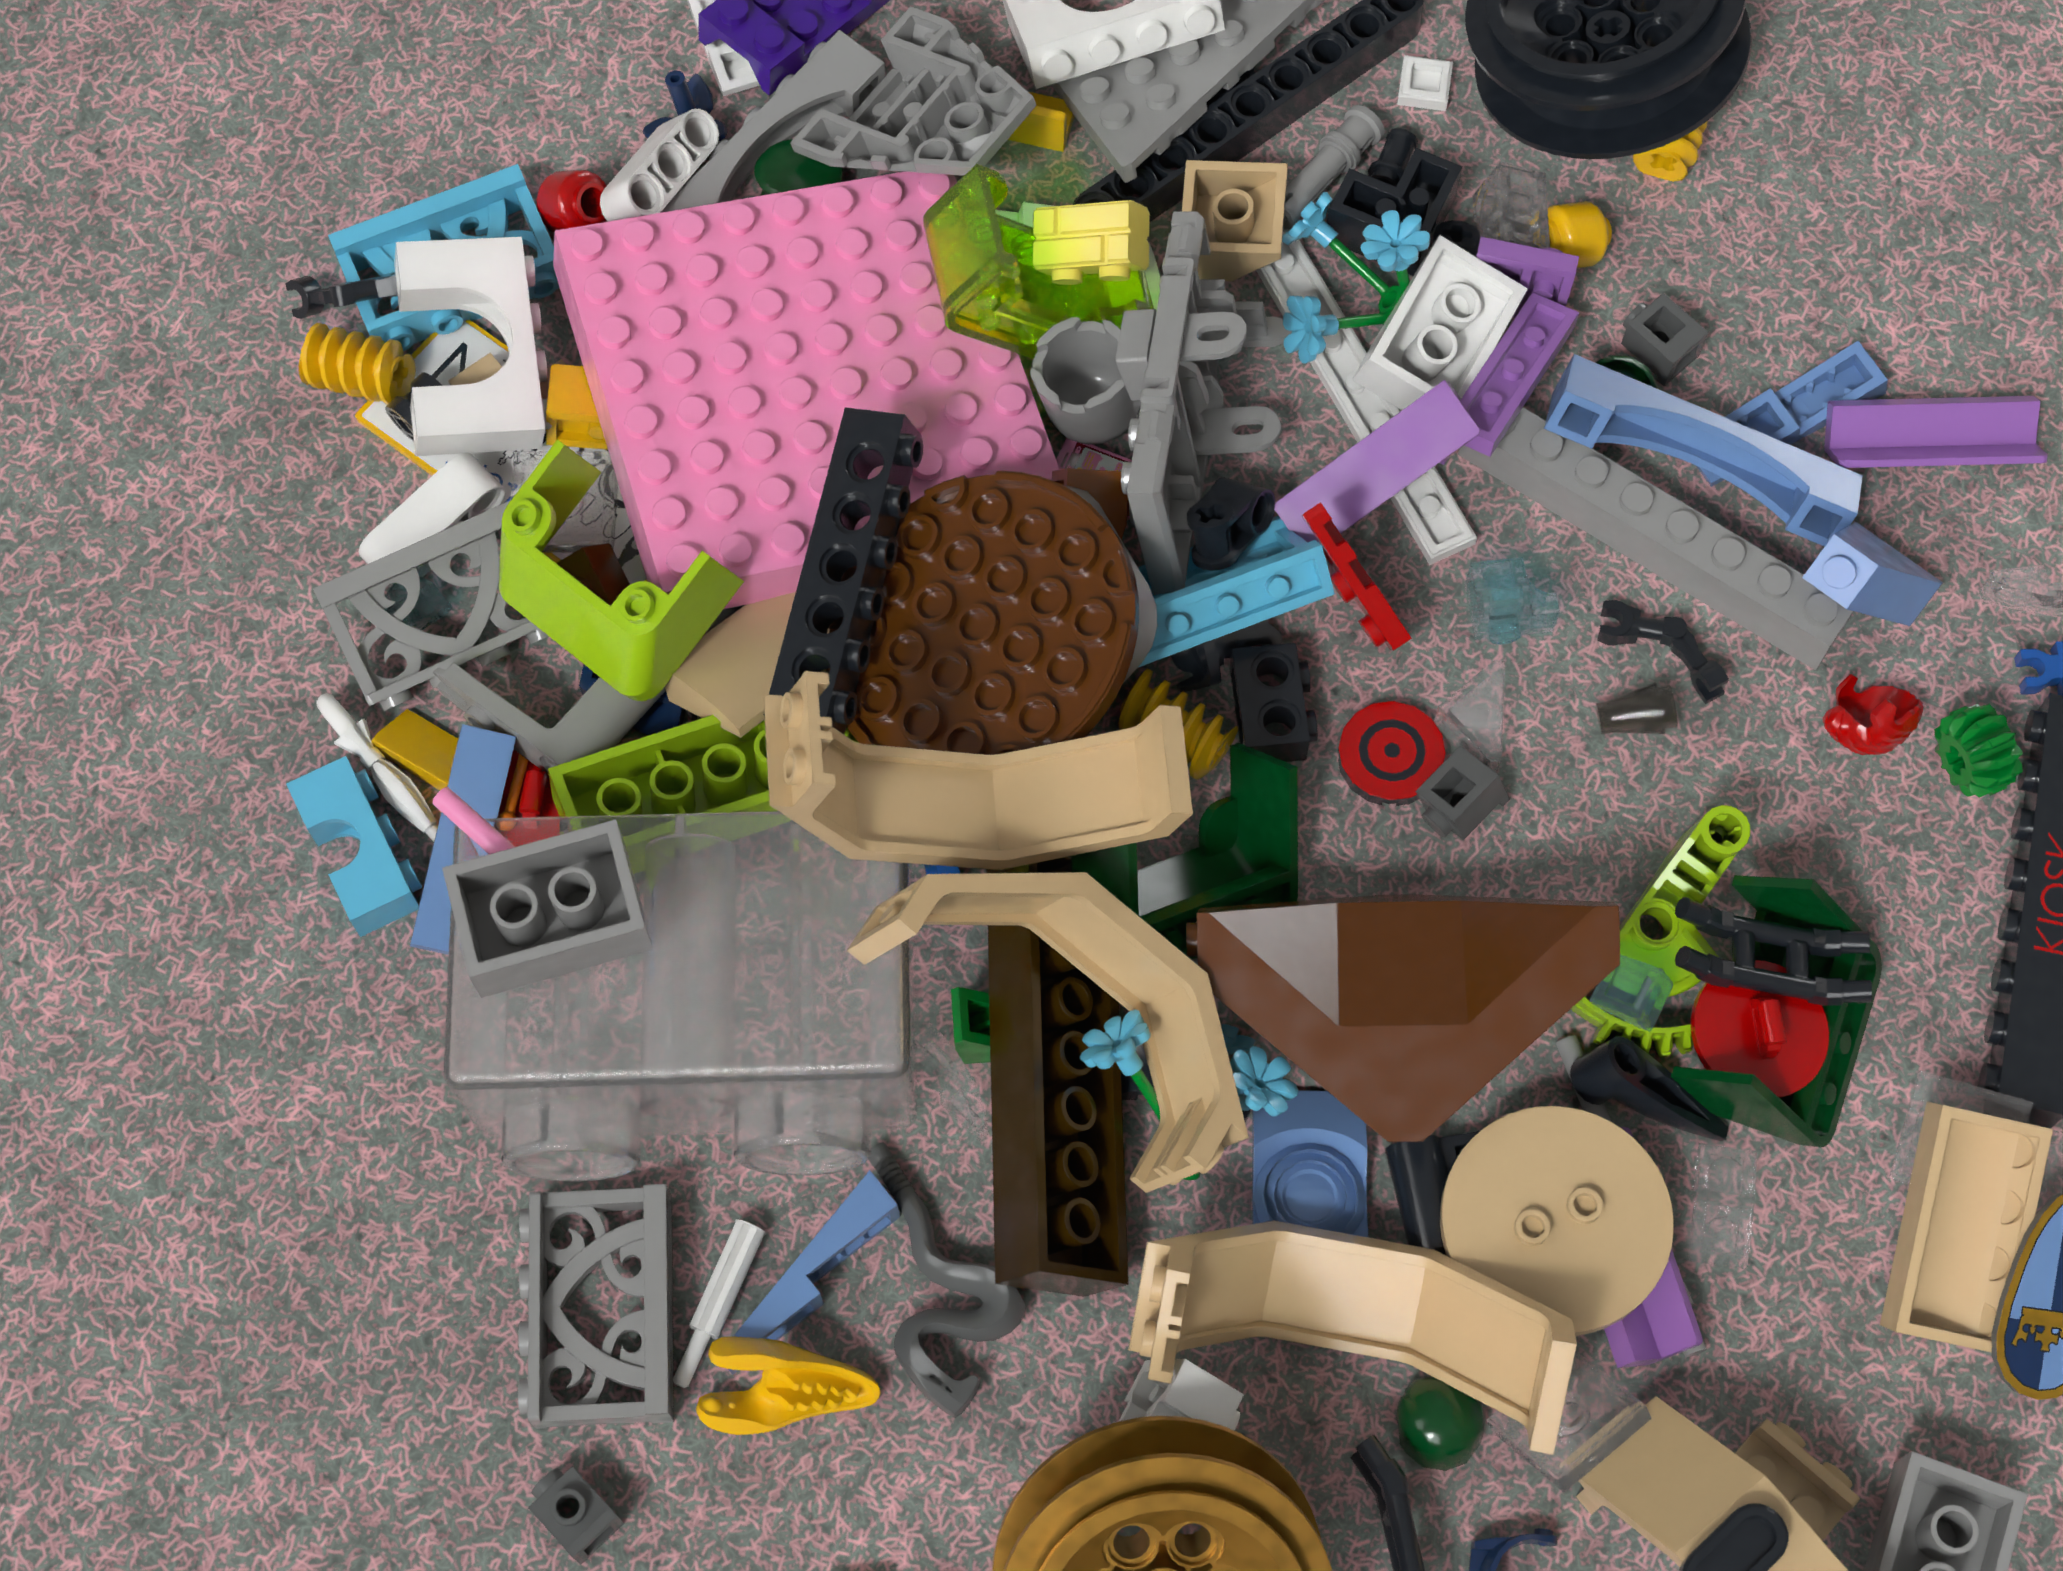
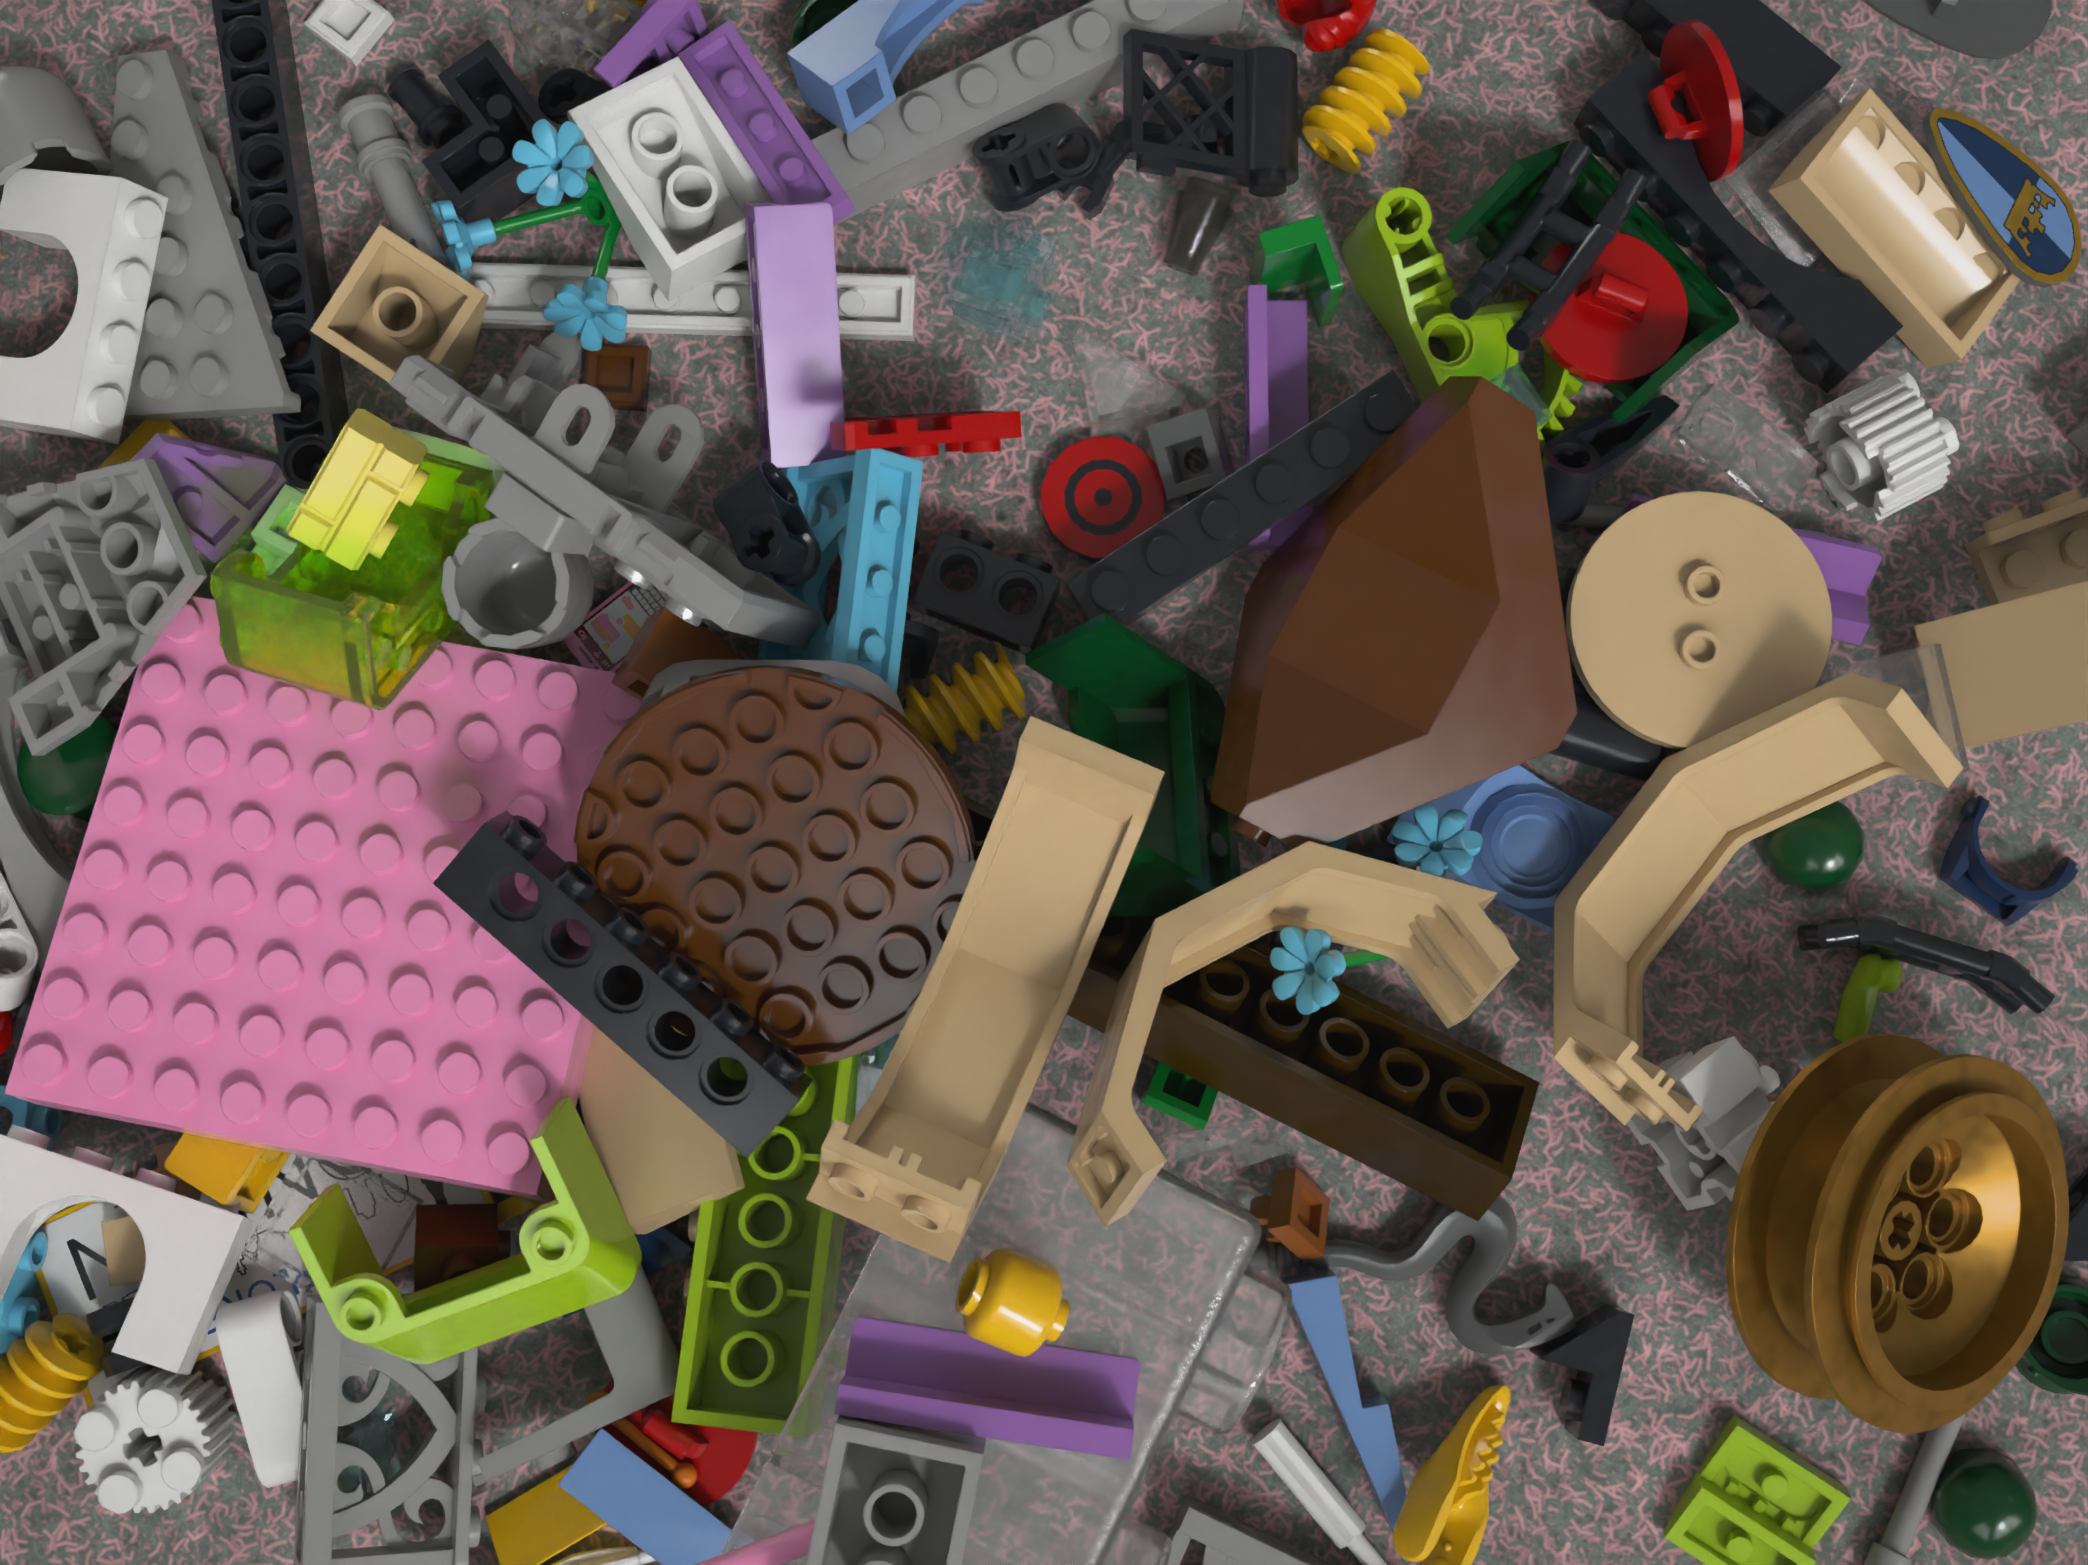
camera: 55 degrees left, 15 degrees up
(359, 458) = (129, 1458): none -> white brick
(693, 933) = (970, 1388): none -> medium lavender panel
(759, 911) = (1012, 1302): none -> yellow head
(928, 1158) = (1294, 1214): none -> dark orange tile
(945, 1444) = (1598, 1352): none -> black slope
(1040, 159) = (214, 488): none -> wing
(1278, 380) = (620, 374): none -> reddish brown tile
(1350, 1515) = (1861, 992): none -> lime arm
(1379, 809) = (1242, 505): none -> black arch
(1517, 849) = (1274, 387): none -> medium lavender fence
(1611, 570) = (1031, 158): none -> black piece
(1649, 782) = (1297, 256): none -> green panel
(1740, 714) = (1255, 121): none -> black piece
(1783, 1299) = (1882, 446): none -> white brick
(1809, 778) = (1362, 96): none -> yellow piece
(1861, 1209) = (1816, 317): none -> black arch
(1966, 1019) = (1703, 73): none -> red shield

